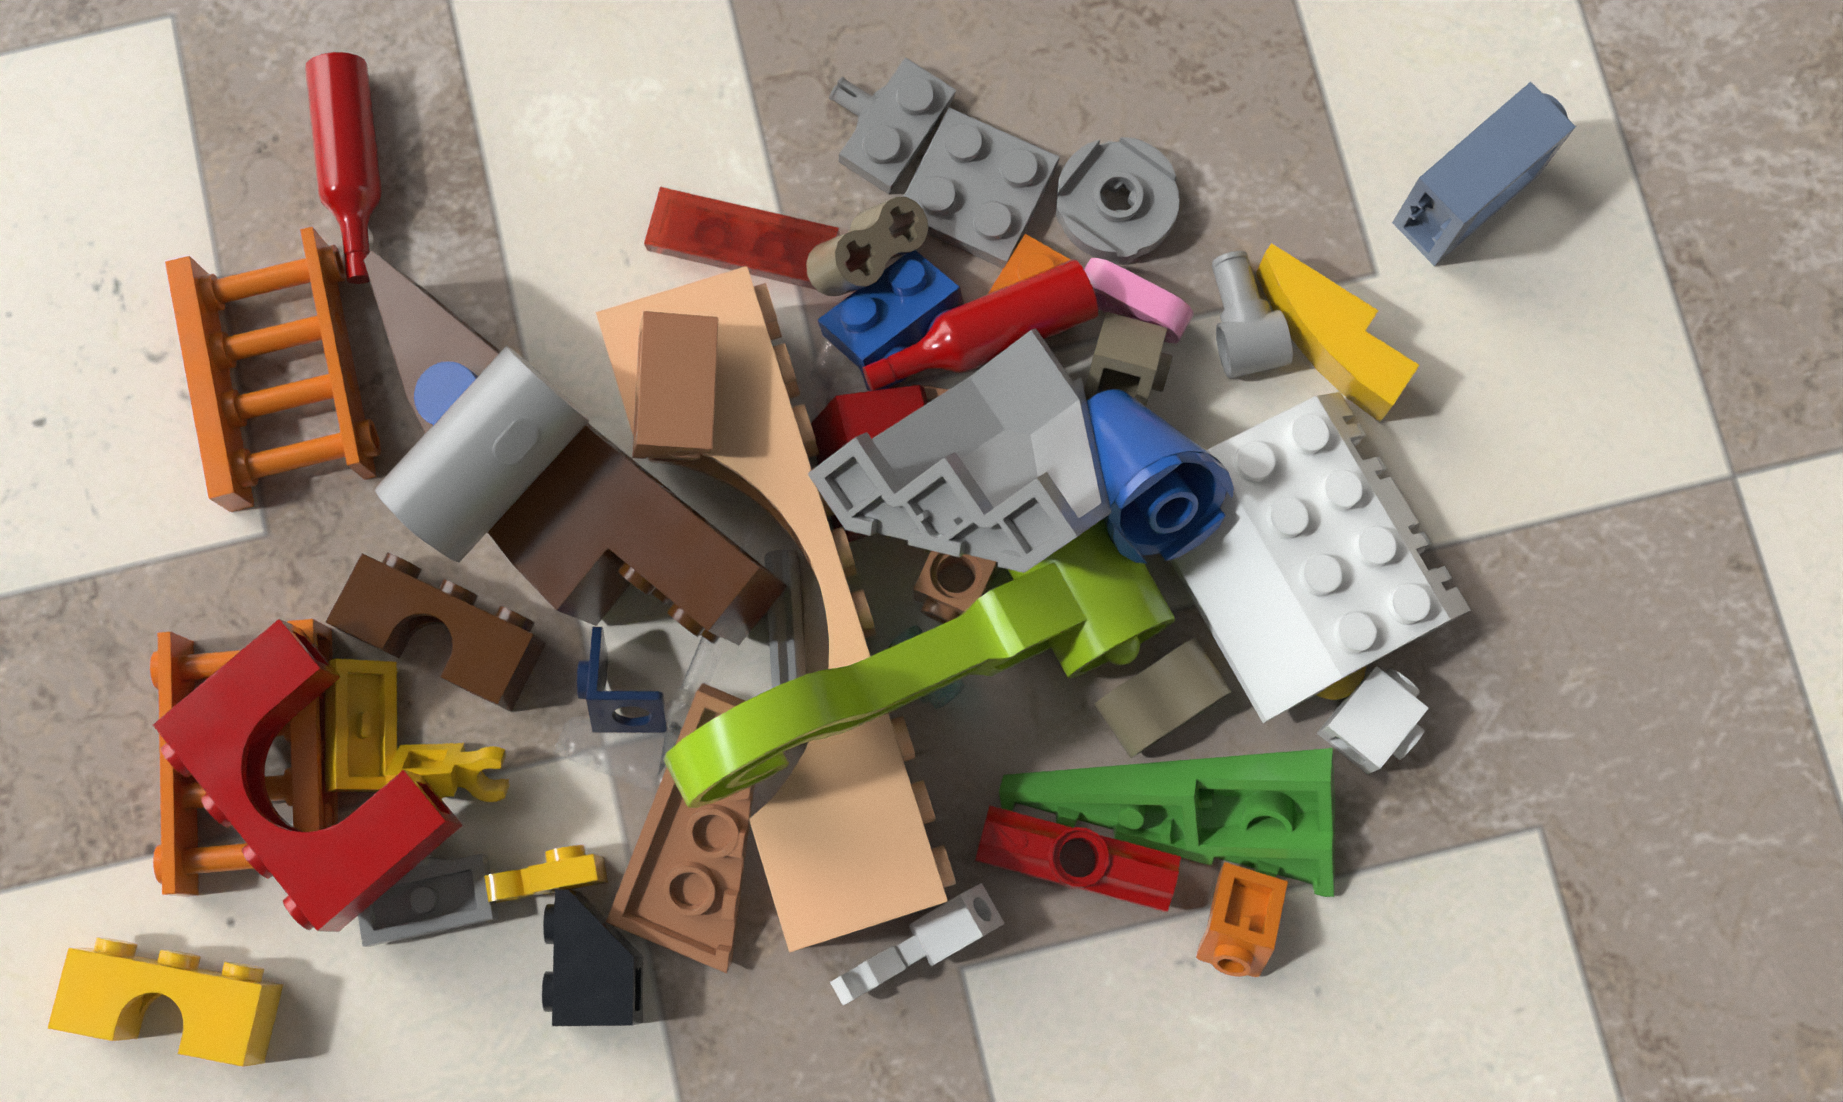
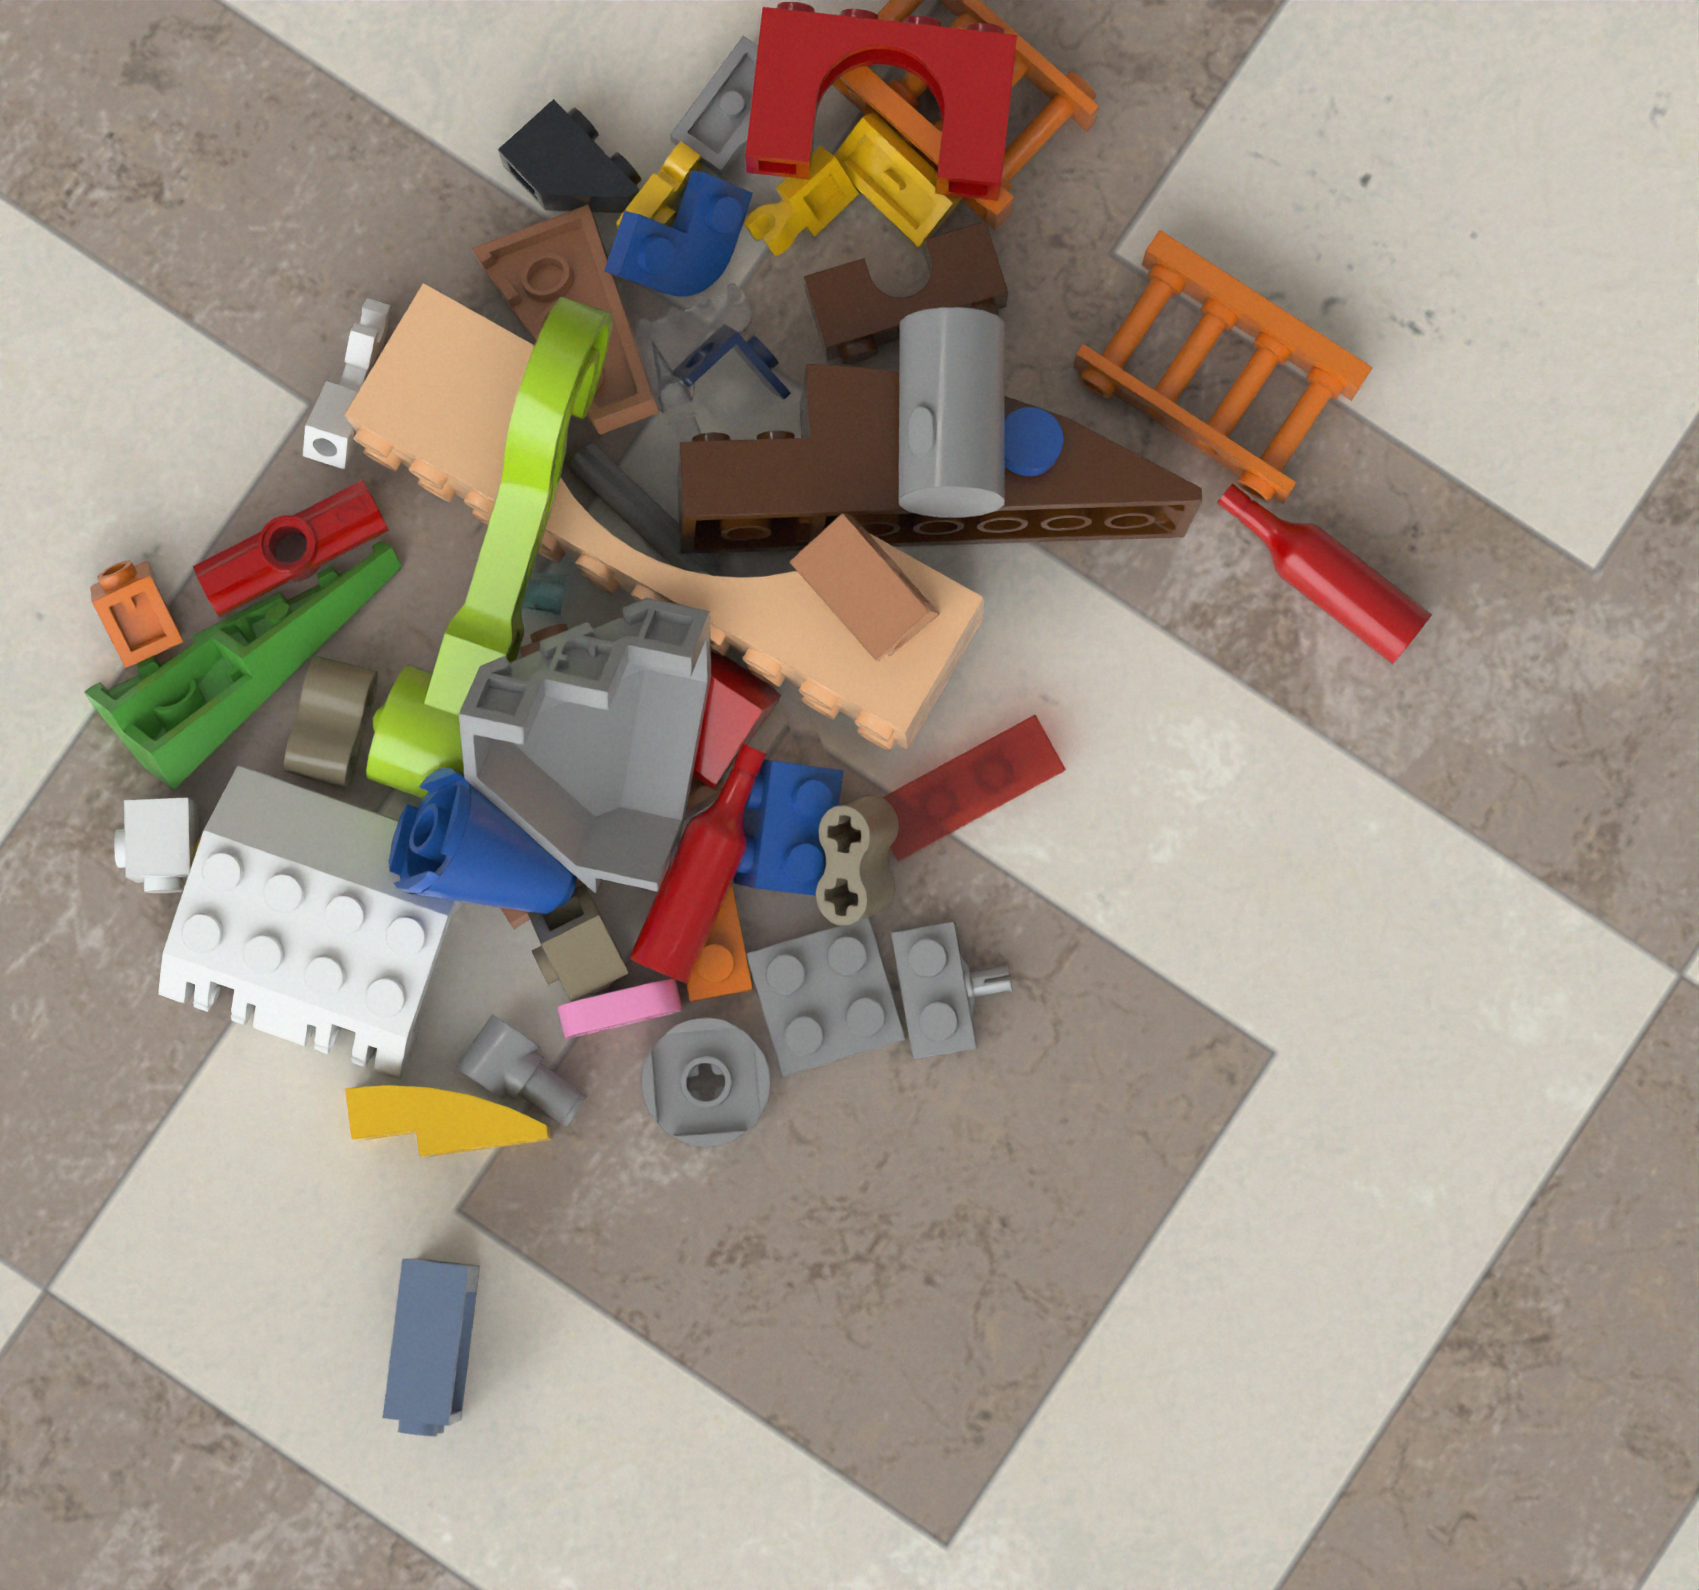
camera: 135 degrees right, 5 degrees up
(564, 808) = (691, 253): none -> blue plate

